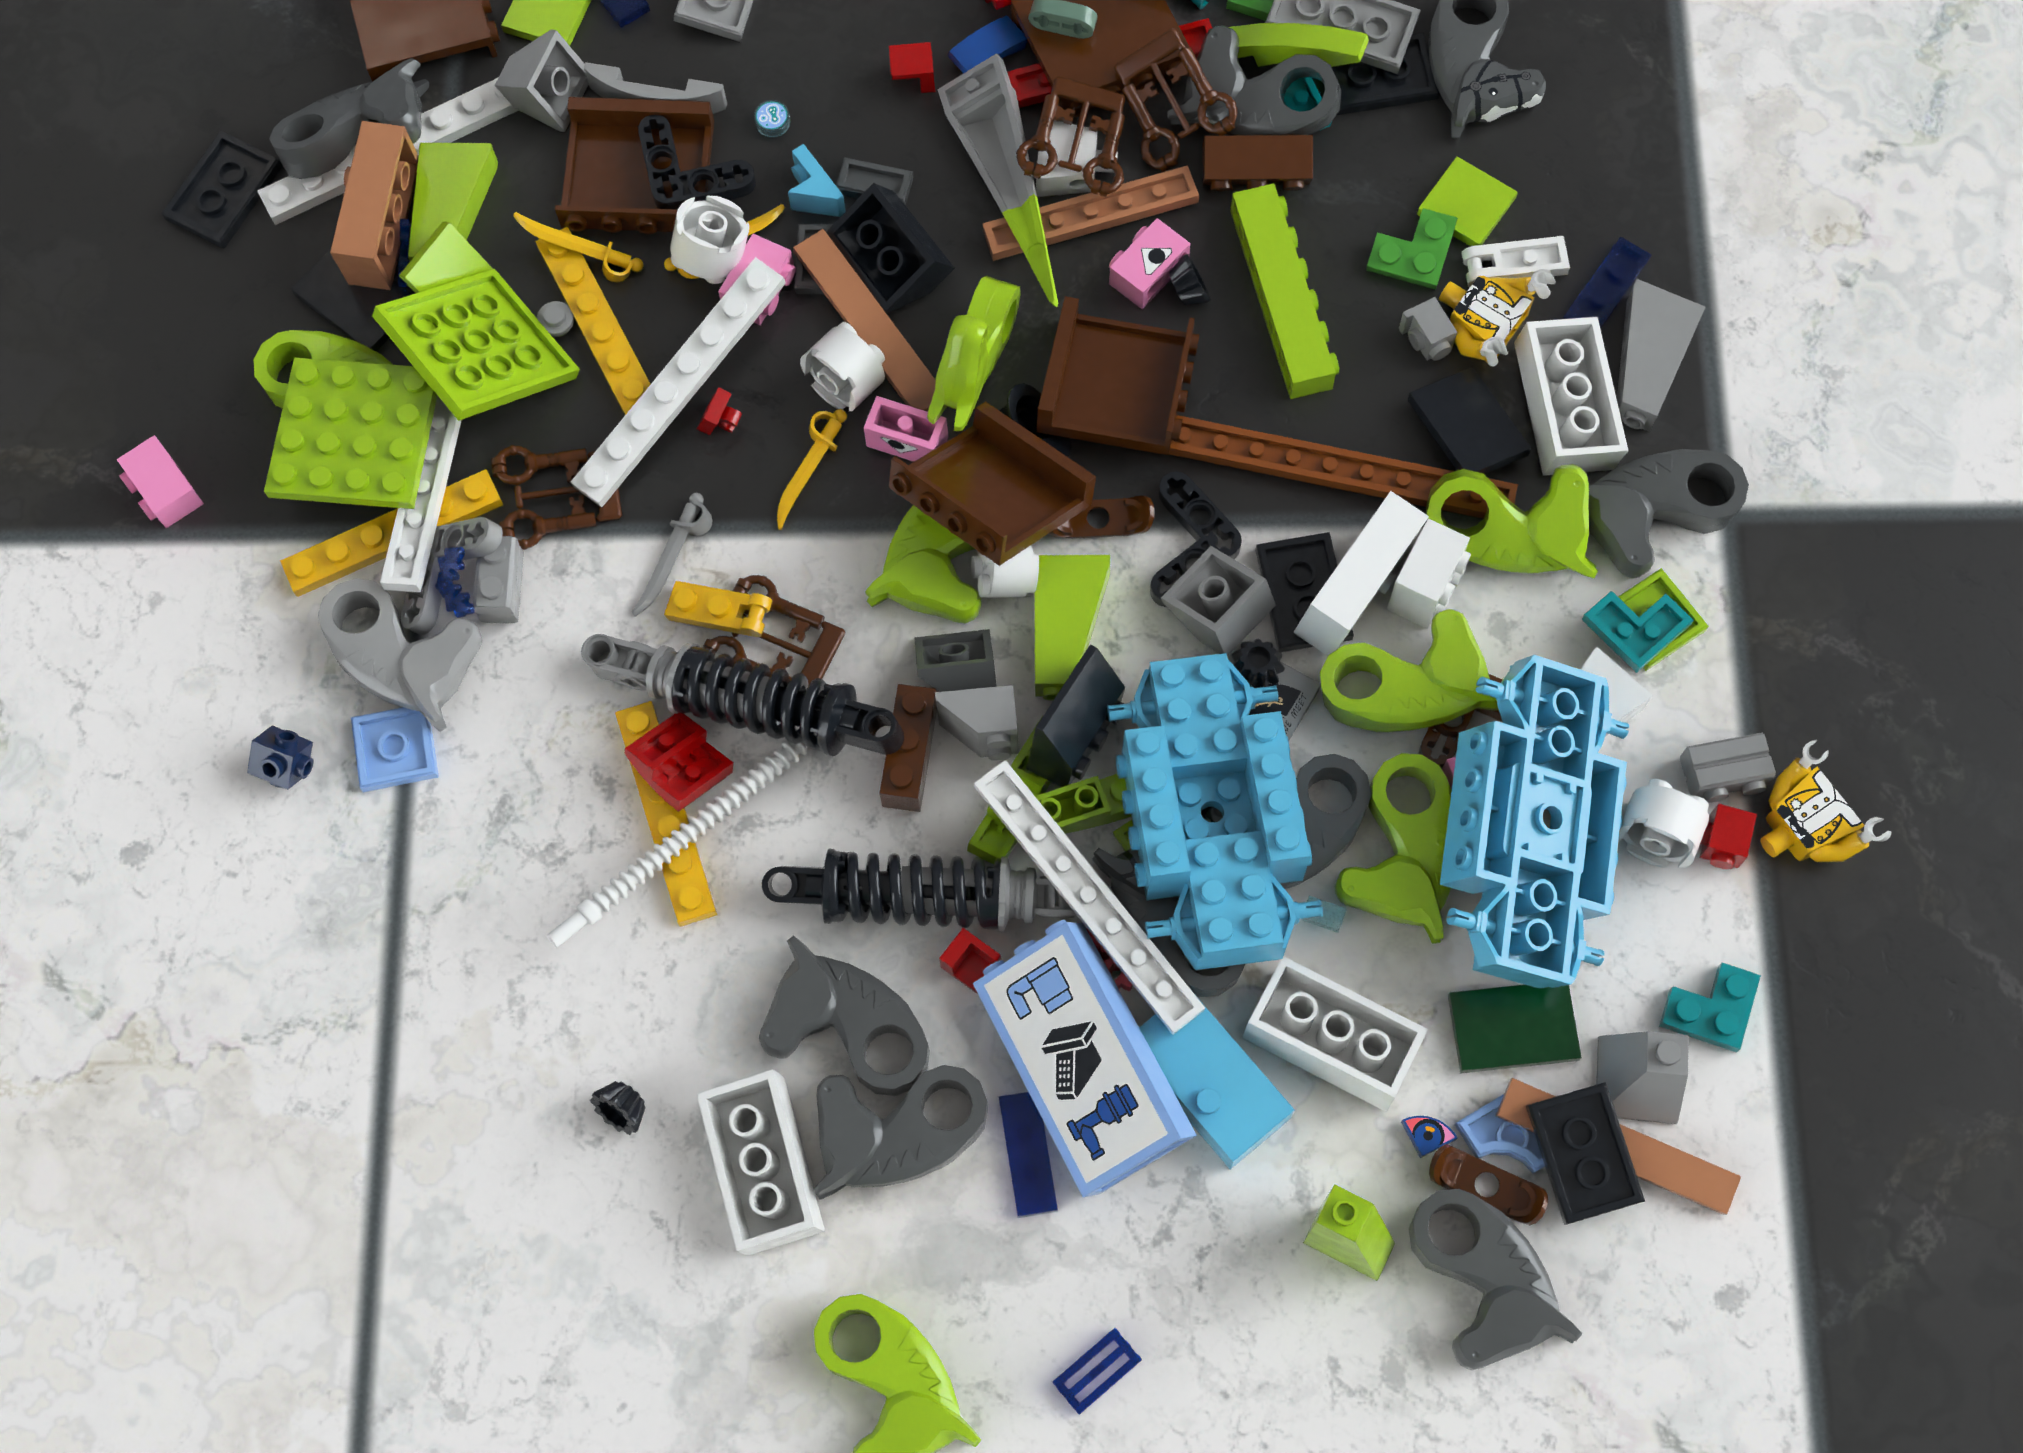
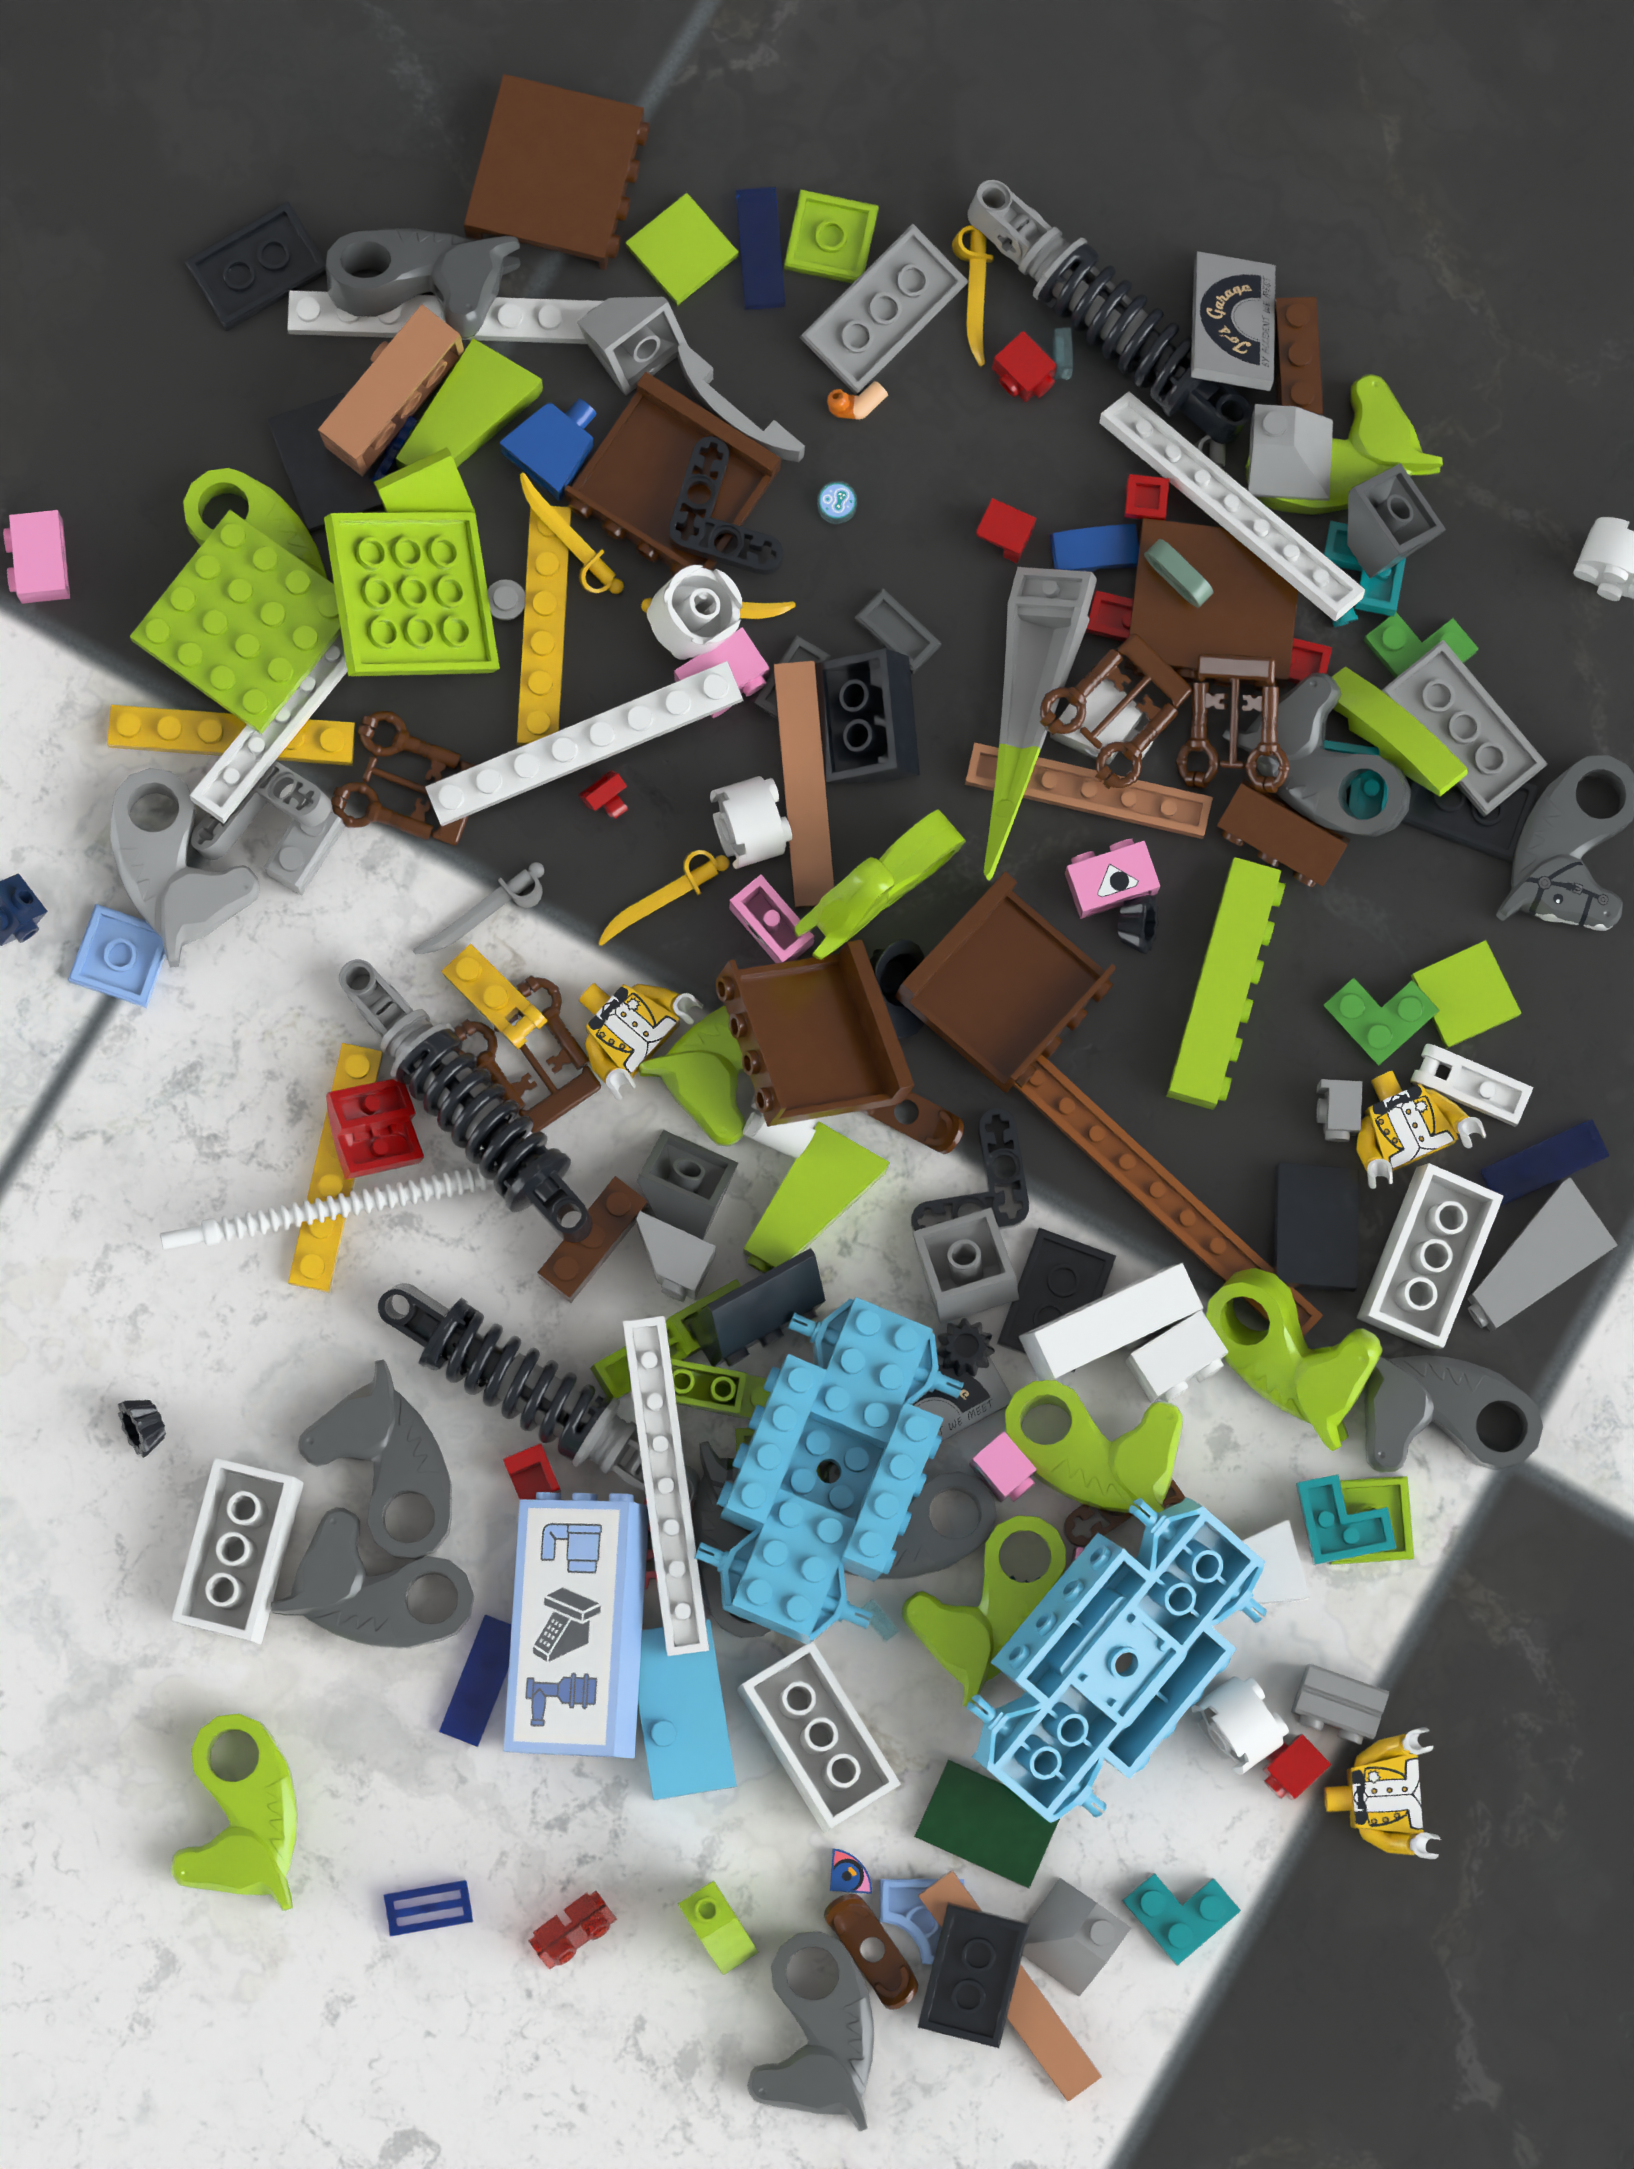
camera: 20 degrees right, 10 degrees up
(448, 573) = (262, 817): clear blue animal -> none
(526, 187) = (552, 445): none -> blue torso
(745, 47) = (853, 406): none -> arm
(815, 189) = (833, 614): medium azure slope -> none
(842, 570) = (630, 1028): none -> torso
(1225, 1334) = (558, 1943): none -> clear red hinge
(1350, 731) = (1004, 1468): none -> bright pink brick

